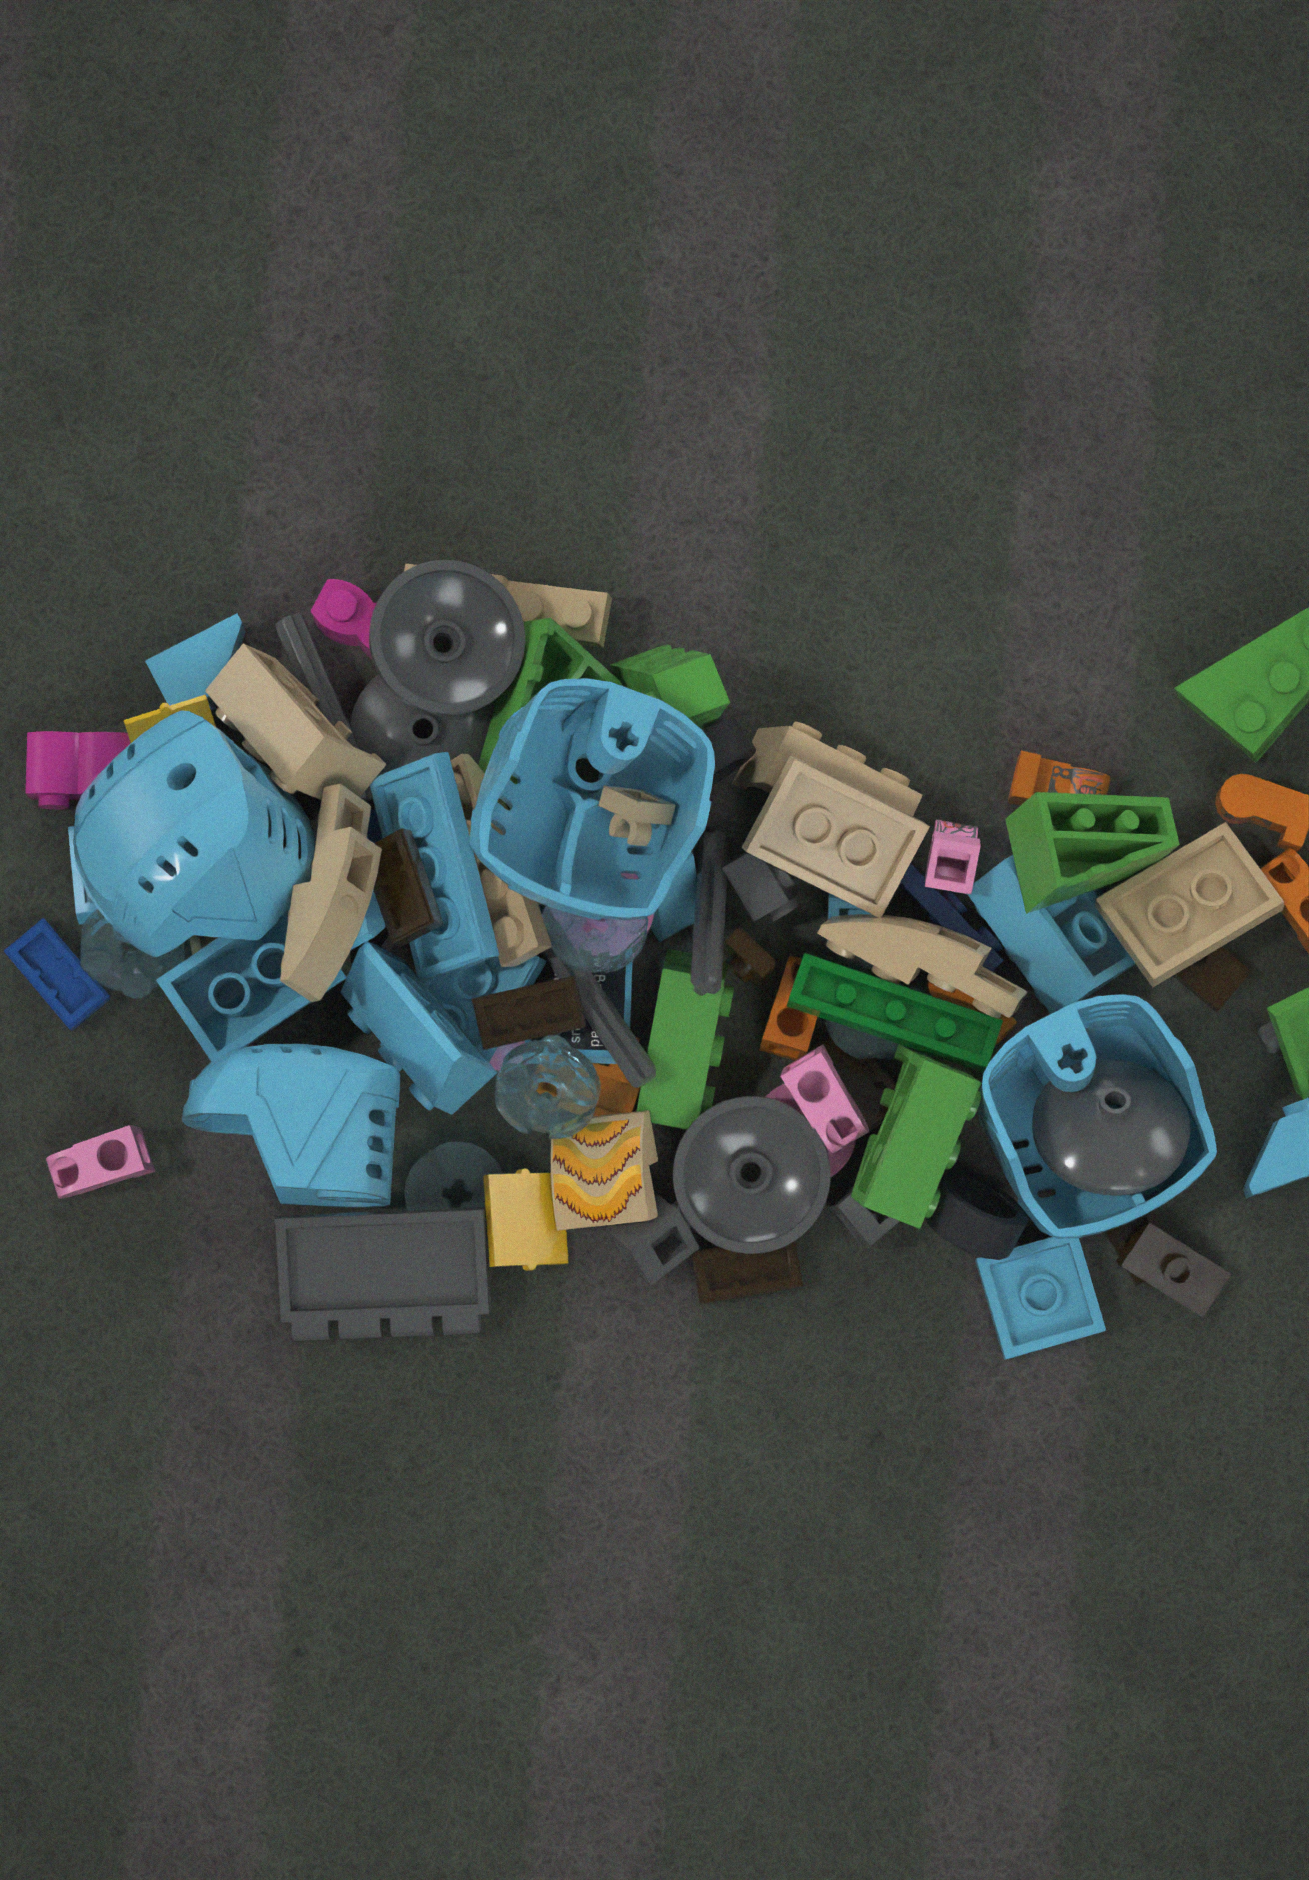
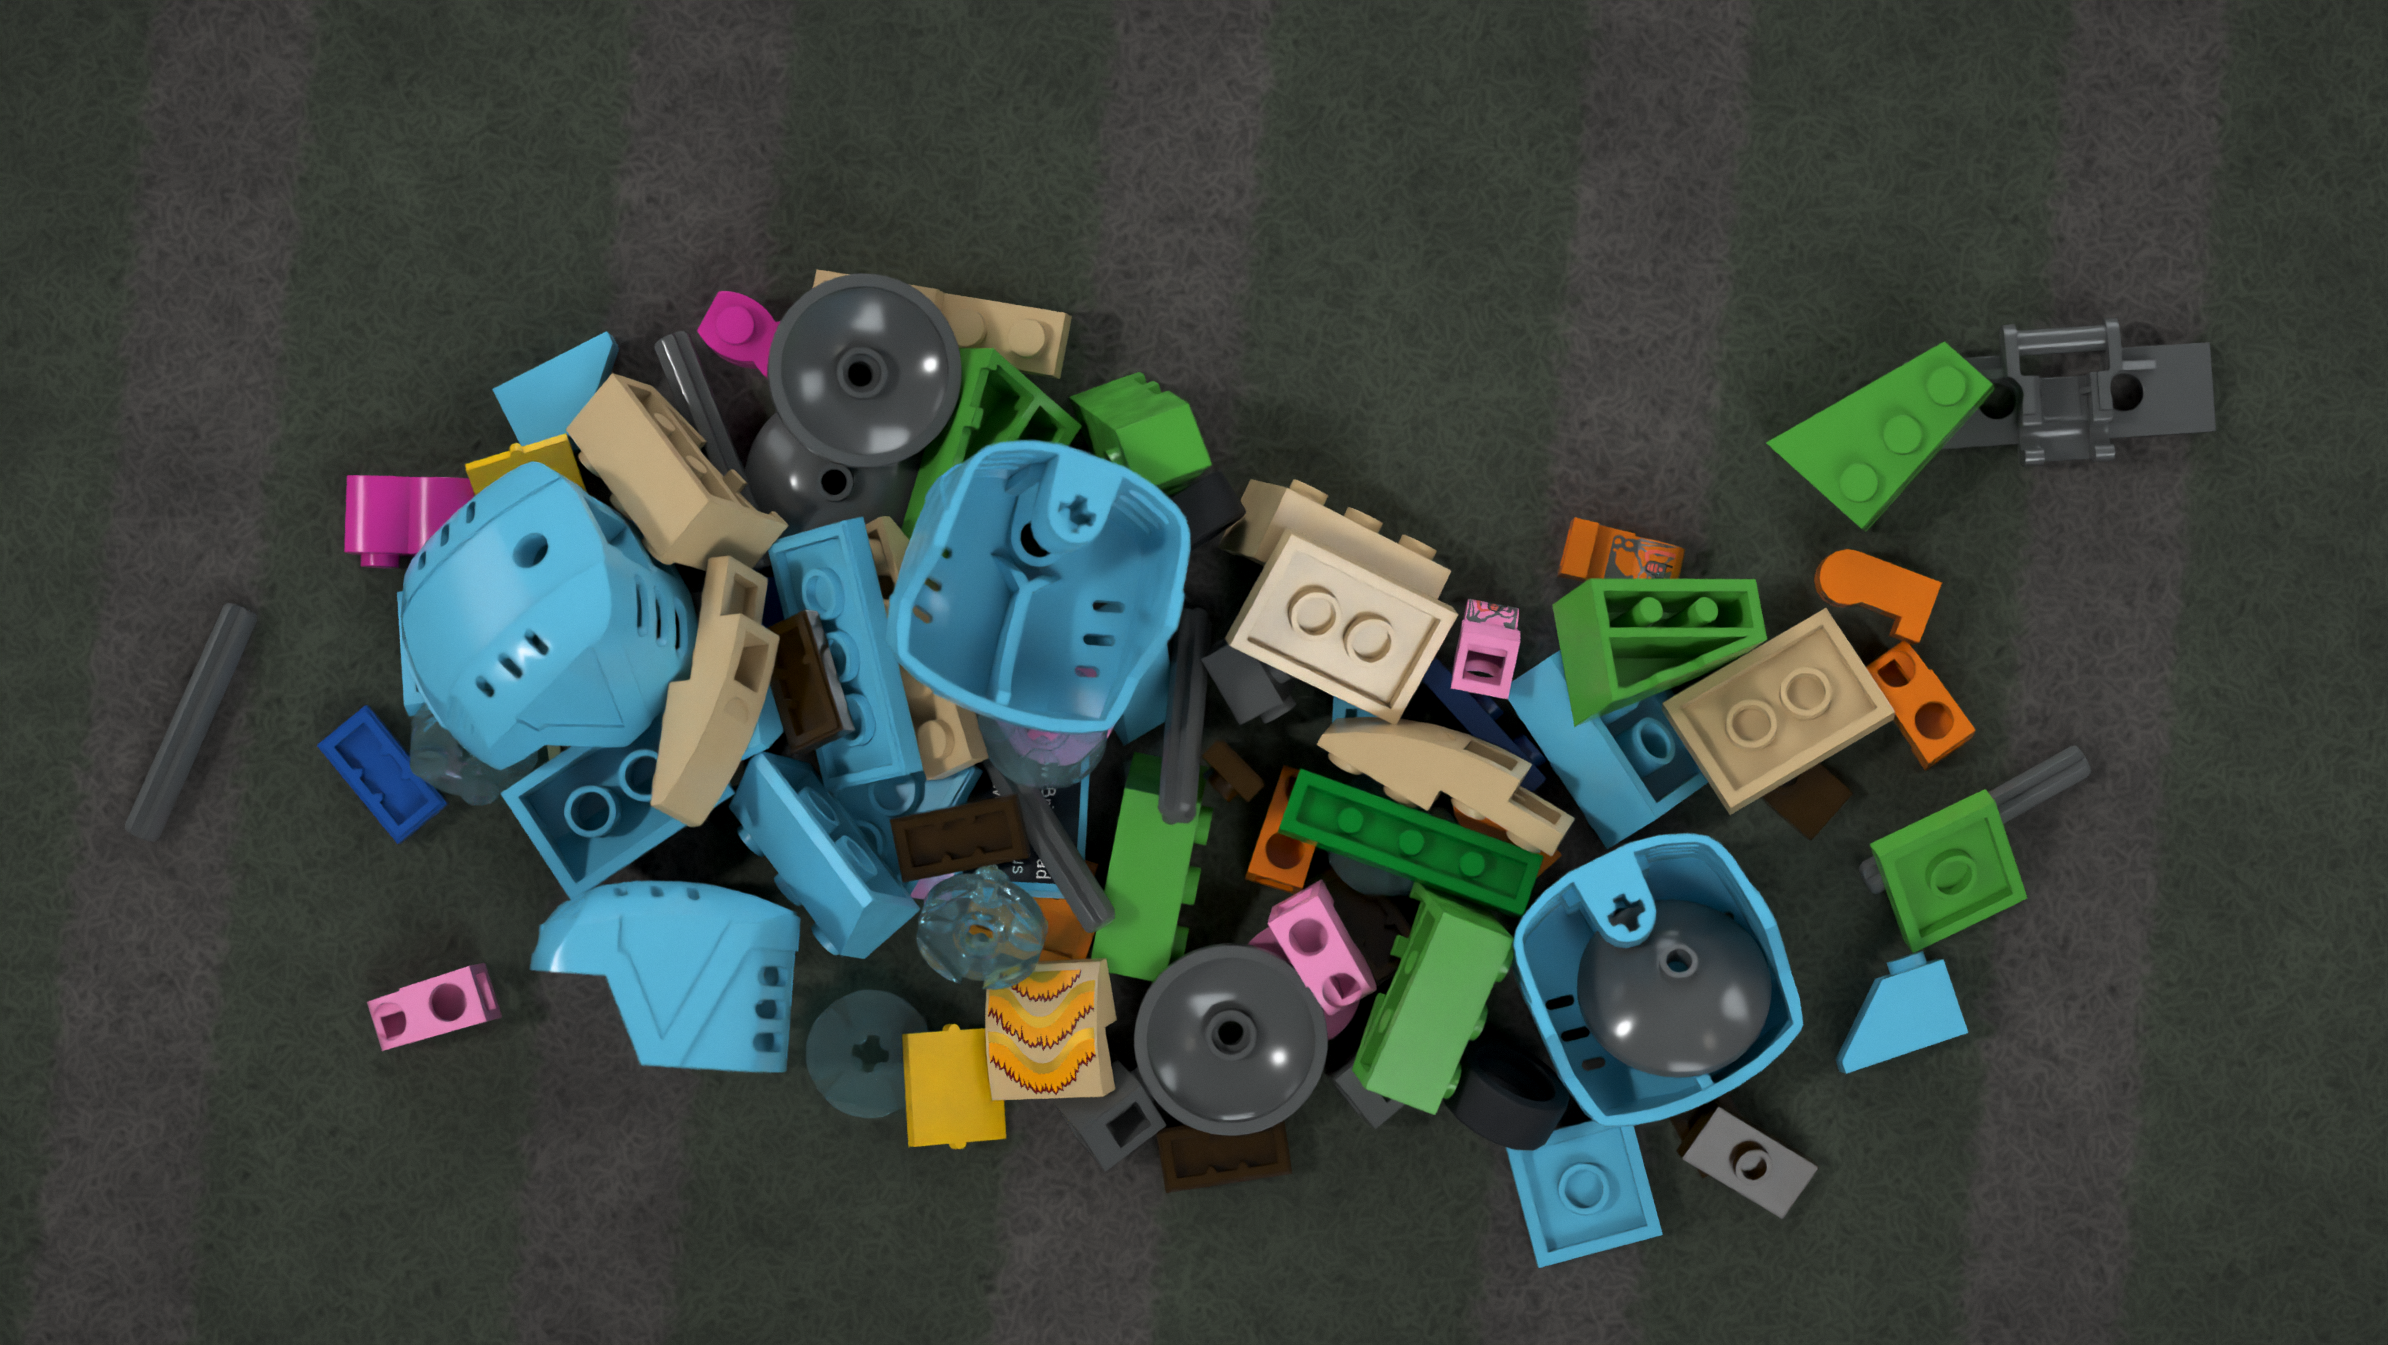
camera: 10 degrees right, 5 degrees up
(383, 1267) = (778, 1143): dark grey hinge -> none
(635, 813) = (1093, 597): tan tile -> none

